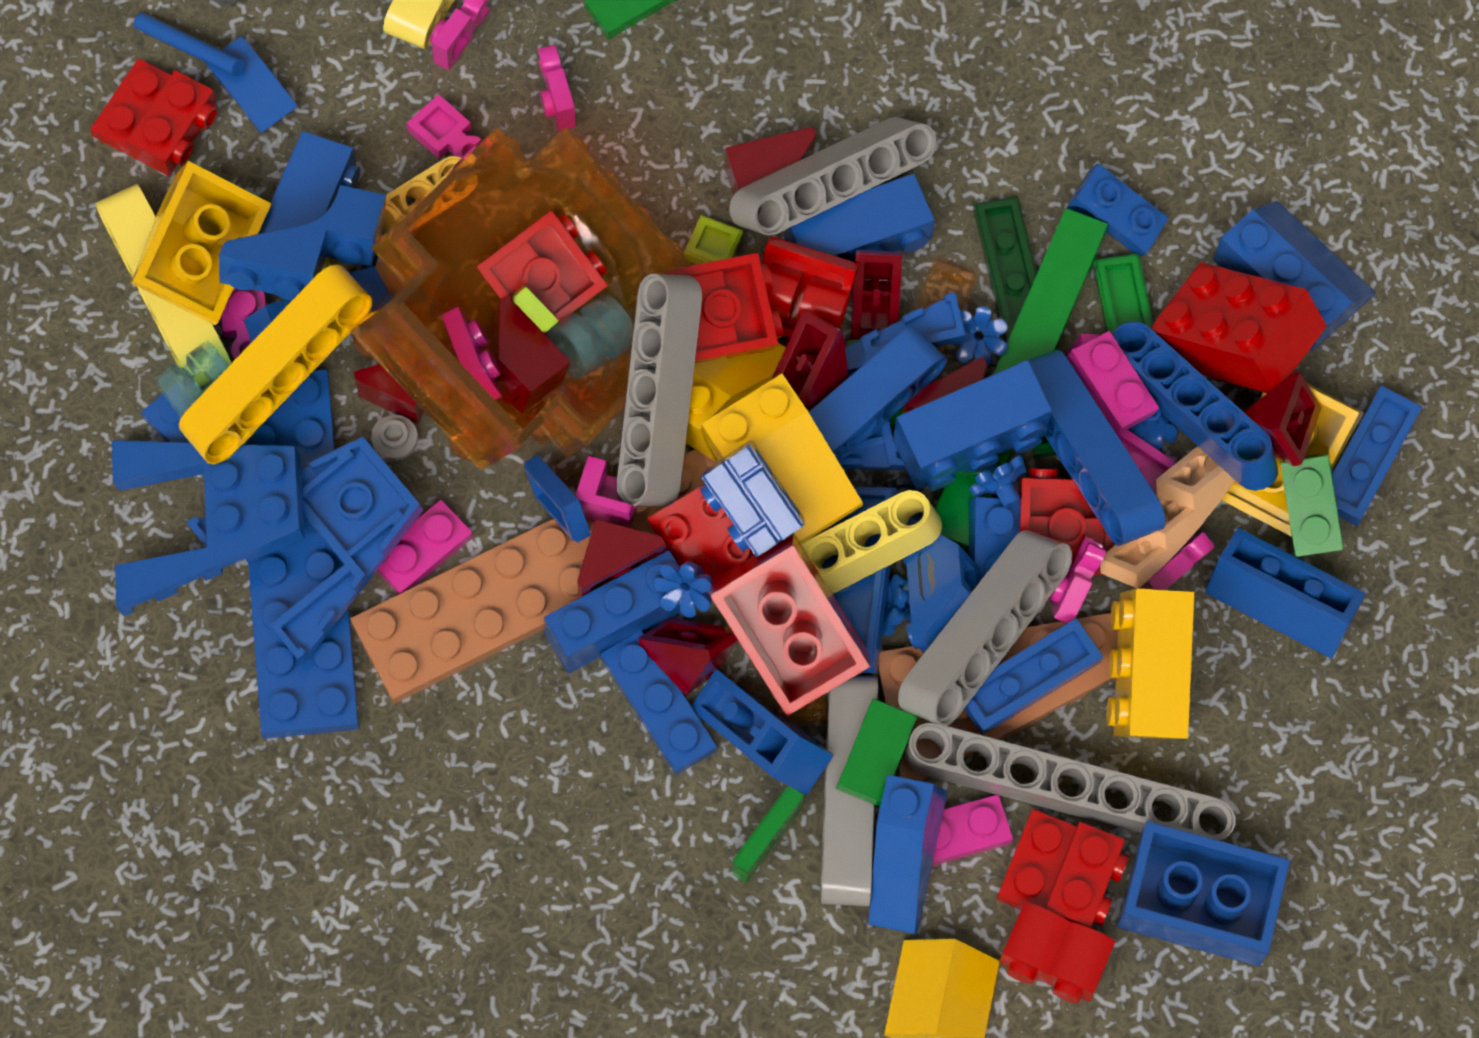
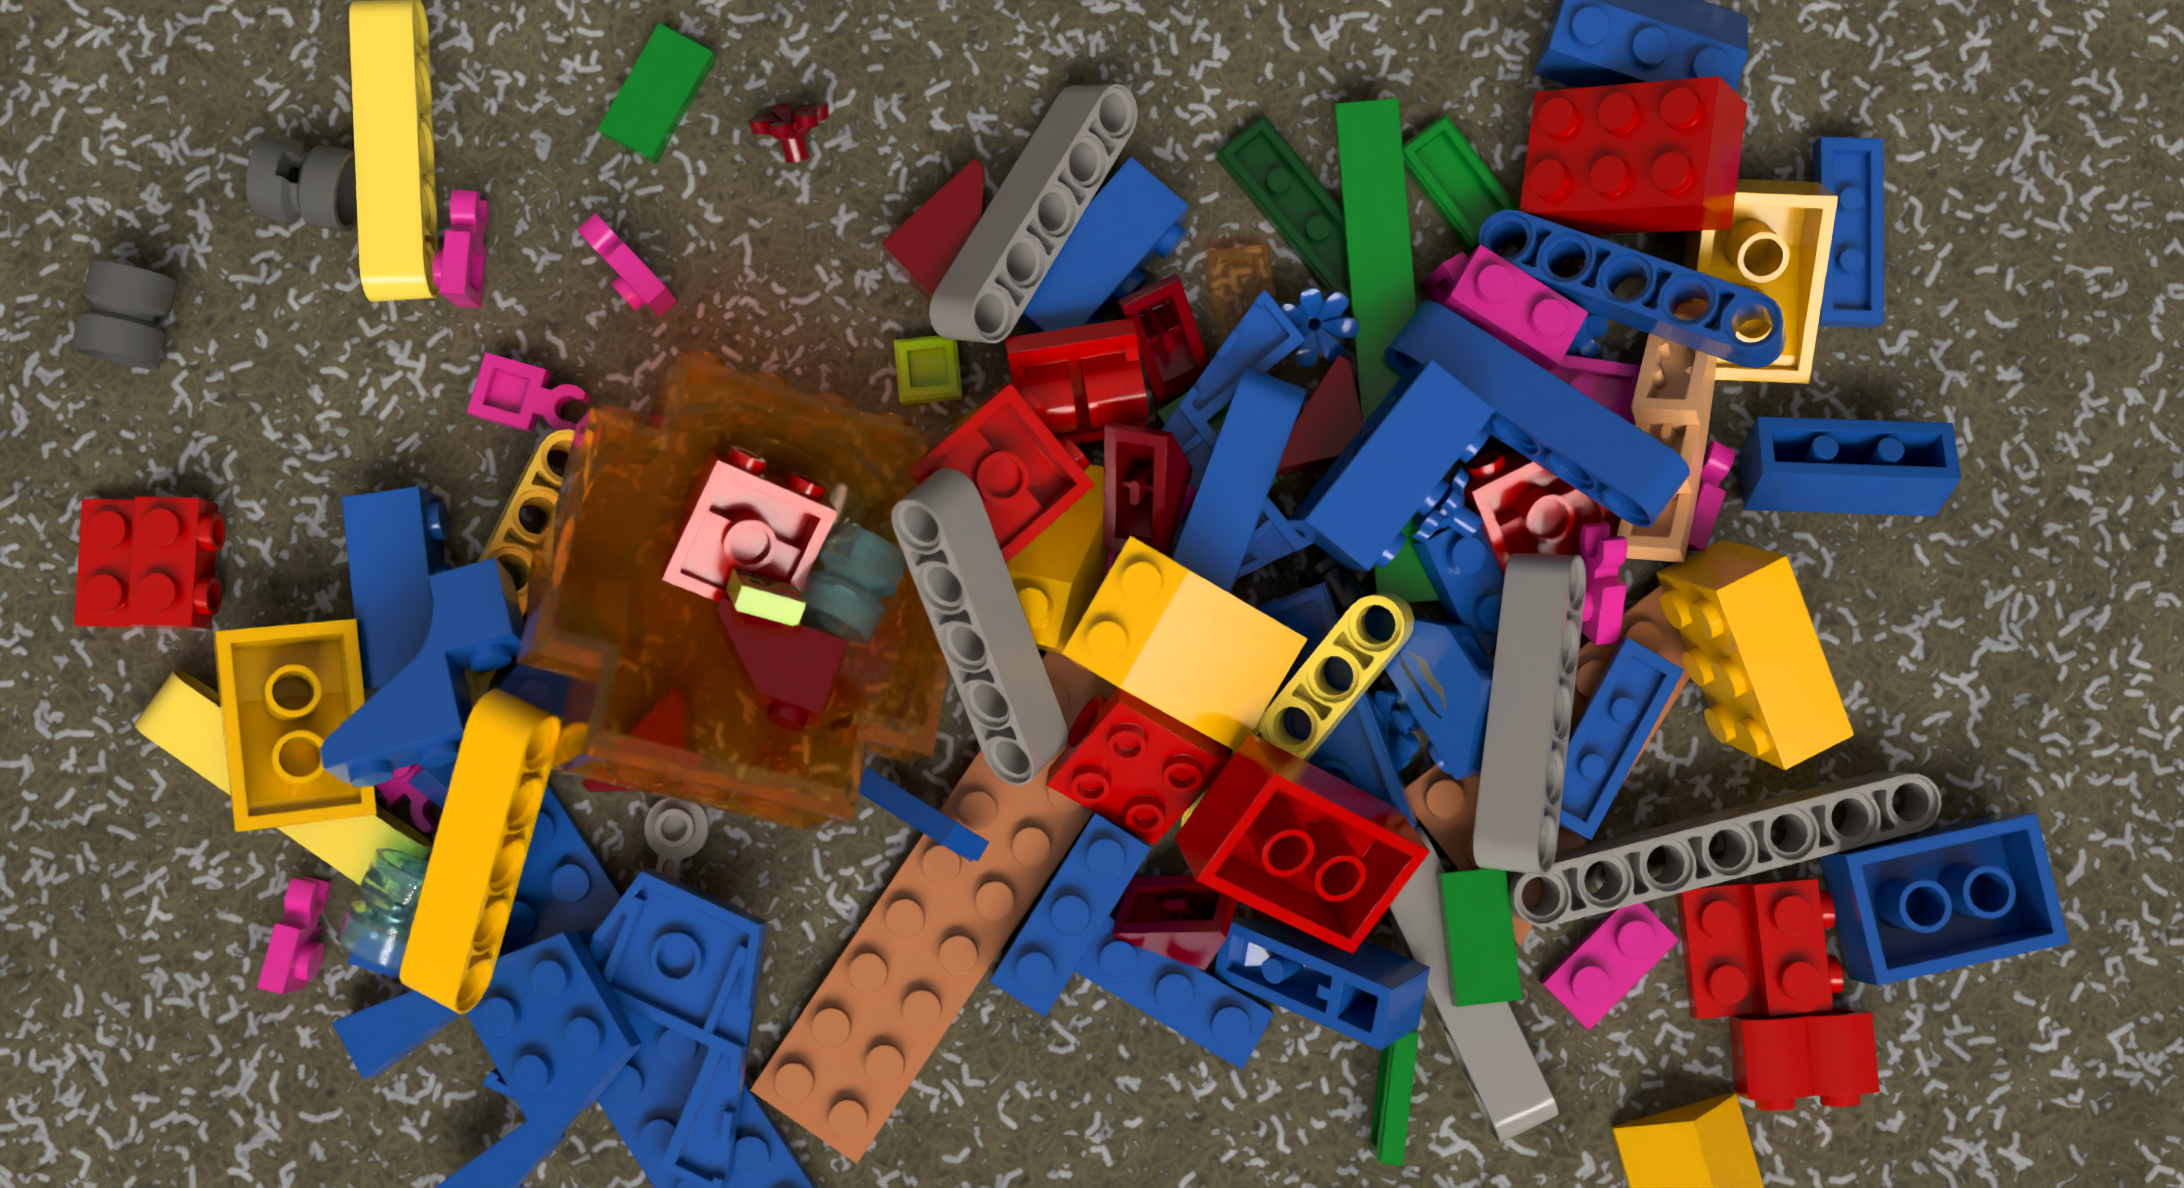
camera: 30 degrees left, 15 degrees up
(115, 383) = (294, 947): none -> dark pink plate
(189, 44) = (135, 450): blue bar -> none
(256, 89) = (243, 461): blue slope -> none
(424, 548) = (792, 946): dark pink plate -> none
(468, 341) = (729, 713): dark pink plate -> none
(600, 496) = (971, 784): dark pink panel -> none
(614, 552) = (1030, 856): dark red slope -> none
(685, 587) = (1145, 858): blue plant -> none
(706, 57) = (790, 127): none -> dark red plant
(751, 499) = (1180, 724): brick -> none
(904, 852) = (1570, 1031): blue slope -> none
(1128, 215) = (1390, 66): blue plate -> none
(1288, 418) = (1765, 255): dark red slope -> none
(1312, 505) = (1834, 341): brick -> none

